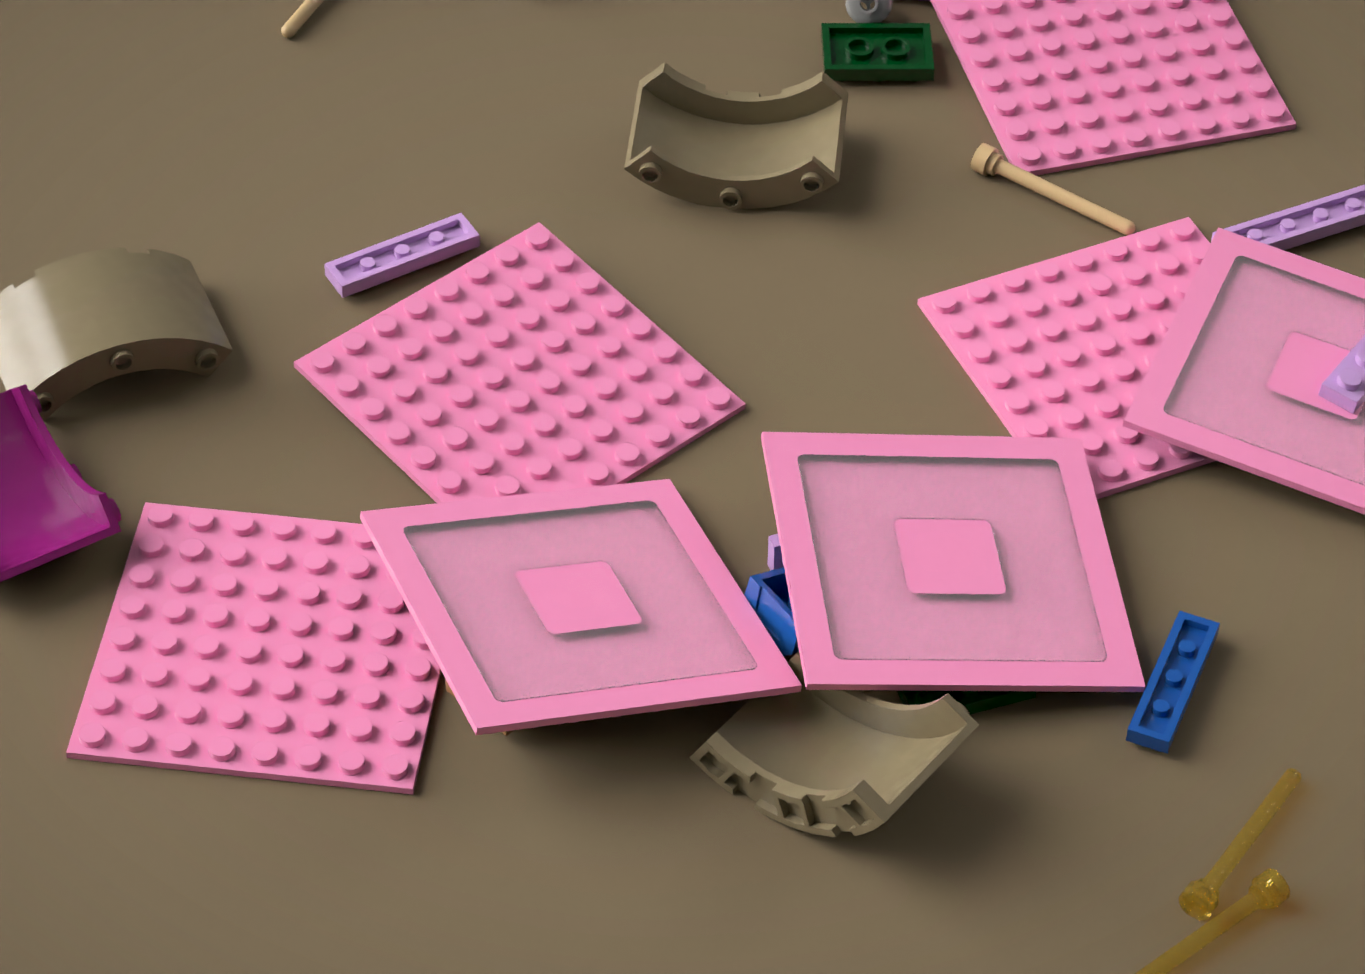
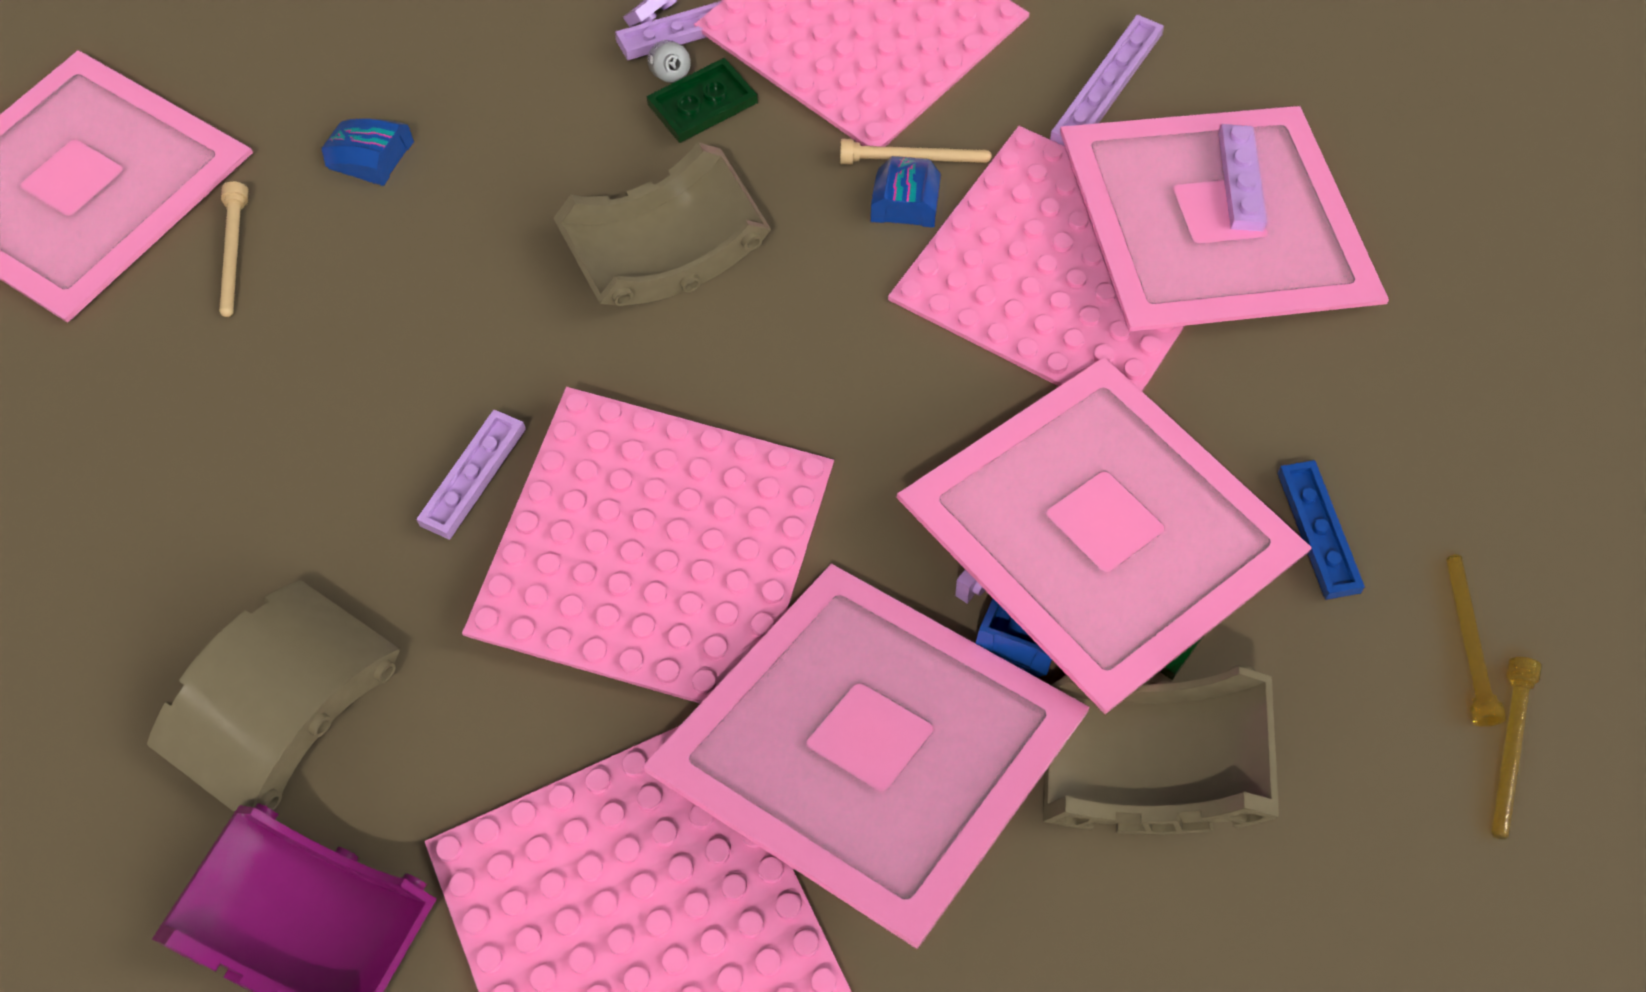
camera: 30 degrees left, 15 degrees up
(1015, 221) = (906, 192): none -> blue slope

